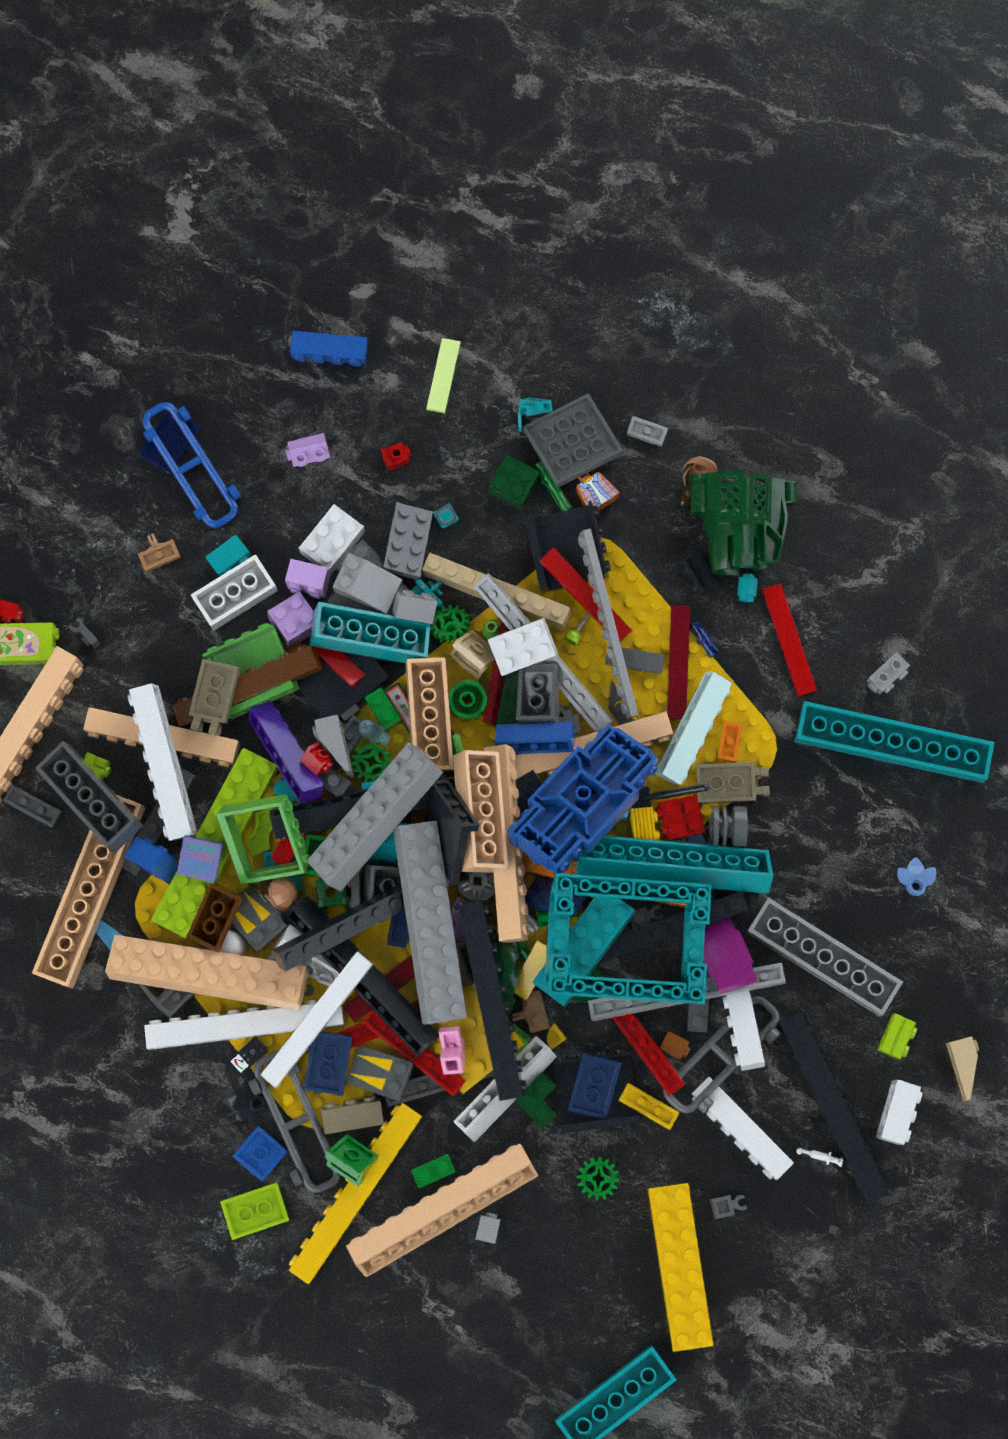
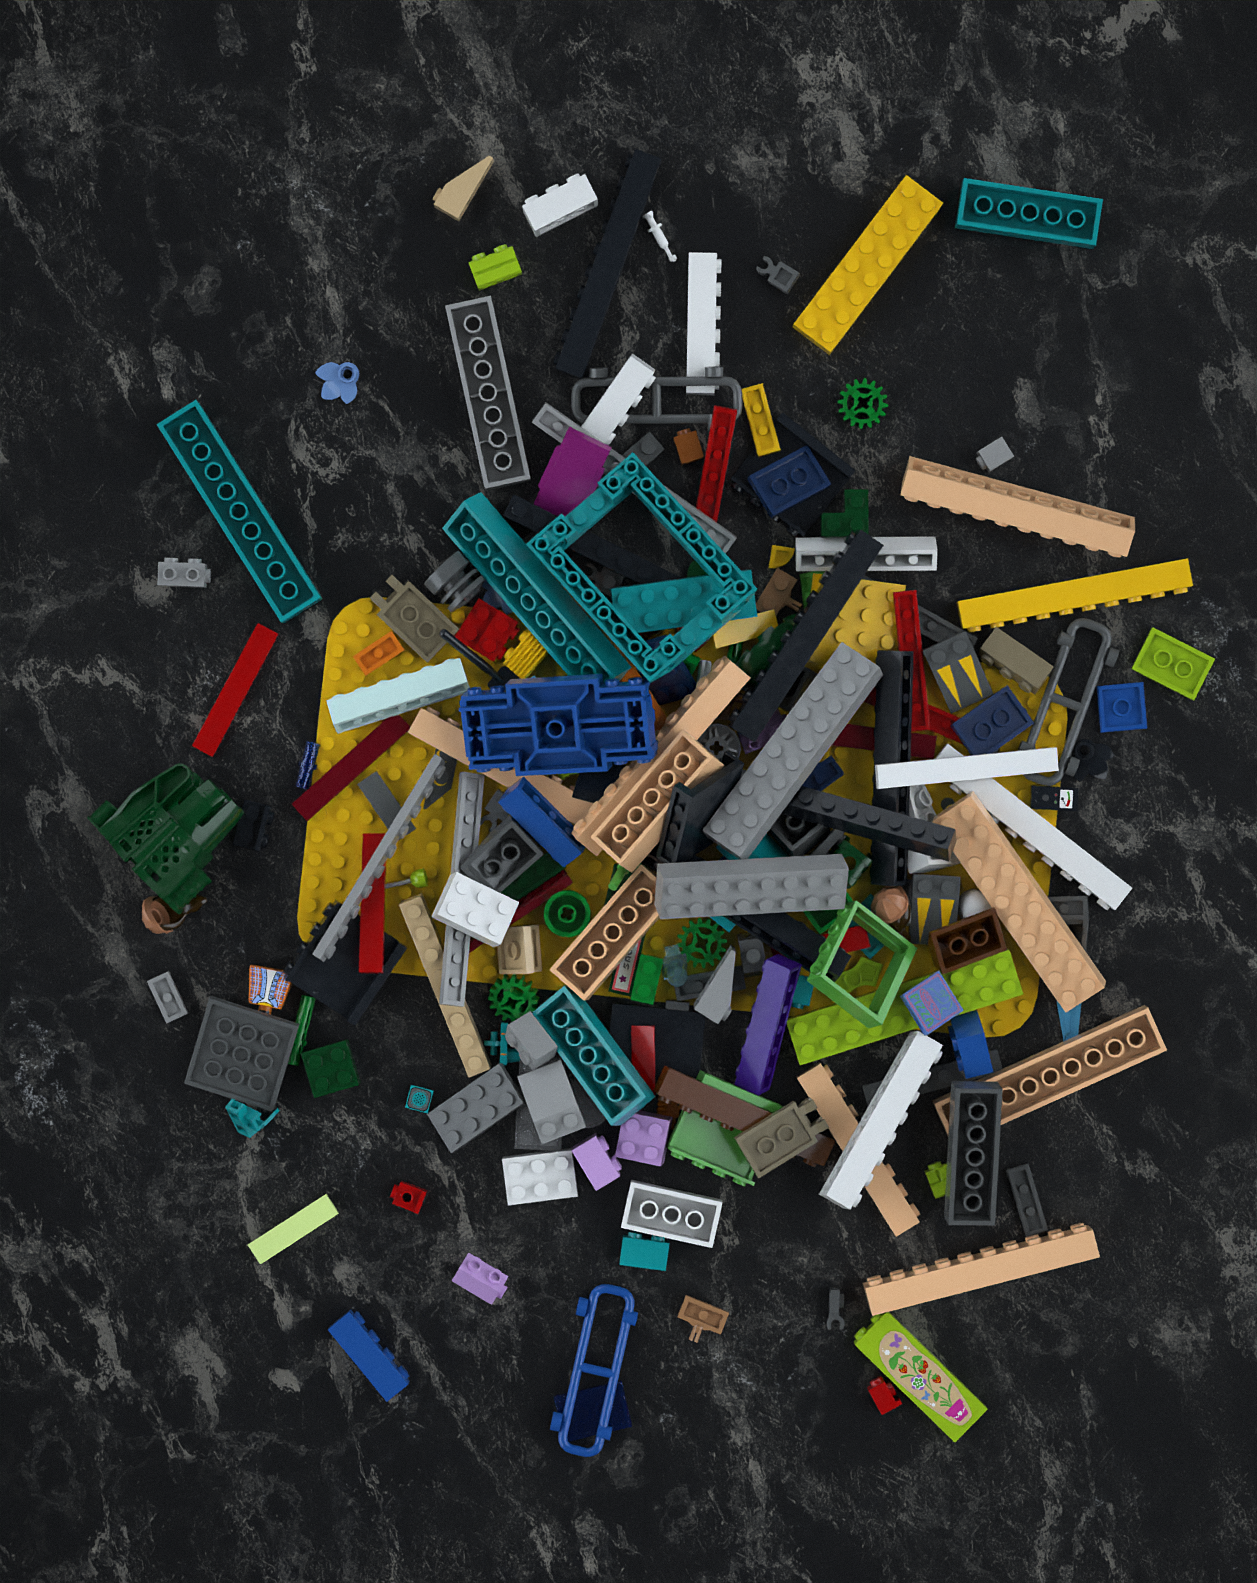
camera: 140 degrees left, 10 degrees up
(317, 759) = (748, 987): red brick -> none
(350, 1159) = (1052, 623): green bracket -> none
(433, 1171) = (993, 547): green brick -> none
(452, 1050) = (880, 626): bright pink brick -> none
(490, 633) = (489, 951): bright green cone -> none
(747, 588) = (224, 770): teal brick -> none

